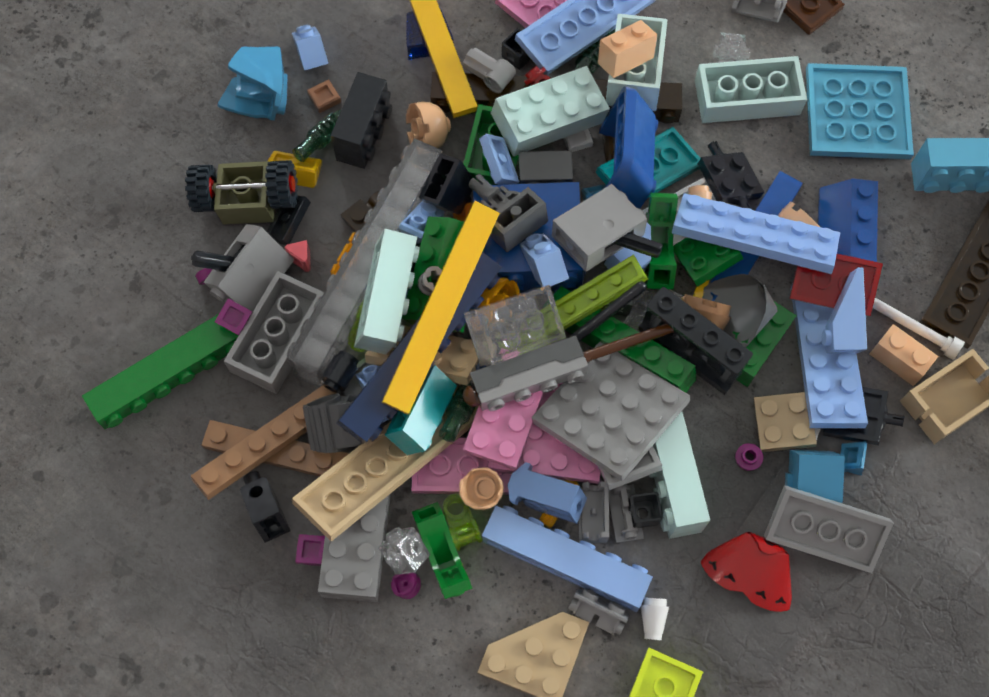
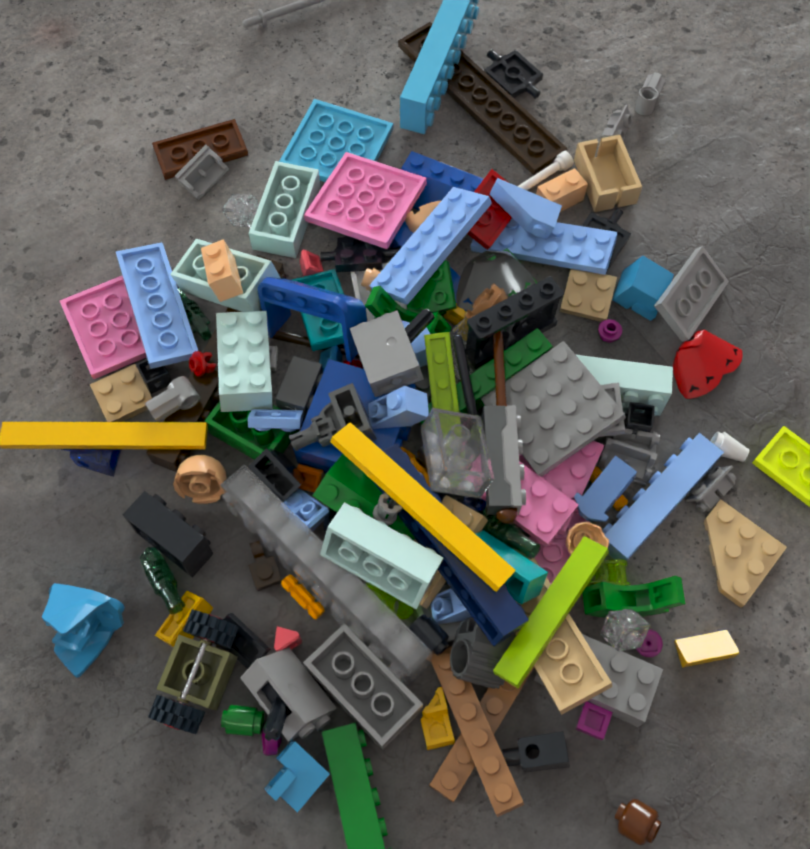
camera: 70 degrees left, 5 degrees down
(181, 305) = (297, 777): none -> dark azure plate
(217, 240) = (242, 720): none -> green brick
(228, 614) = (638, 822): none -> reddish brown head
(233, 317) = (338, 721): magenta plate -> none
(266, 409) = (436, 722): none -> yellow slope
(309, 47) = (57, 561): light blue slope -> none
(324, 96) = (116, 567): nougat tile -> none
(392, 468) = (550, 612): none -> lime tile
(420, 643) = (706, 648): none -> slope
(486, 30) = (121, 394): none -> tan plate
(700, 138) = (310, 263): none -> coral slope
(793, 158) = (365, 200): none -> bright pink plate
(854, 457) = (630, 255): dark azure slope -> none

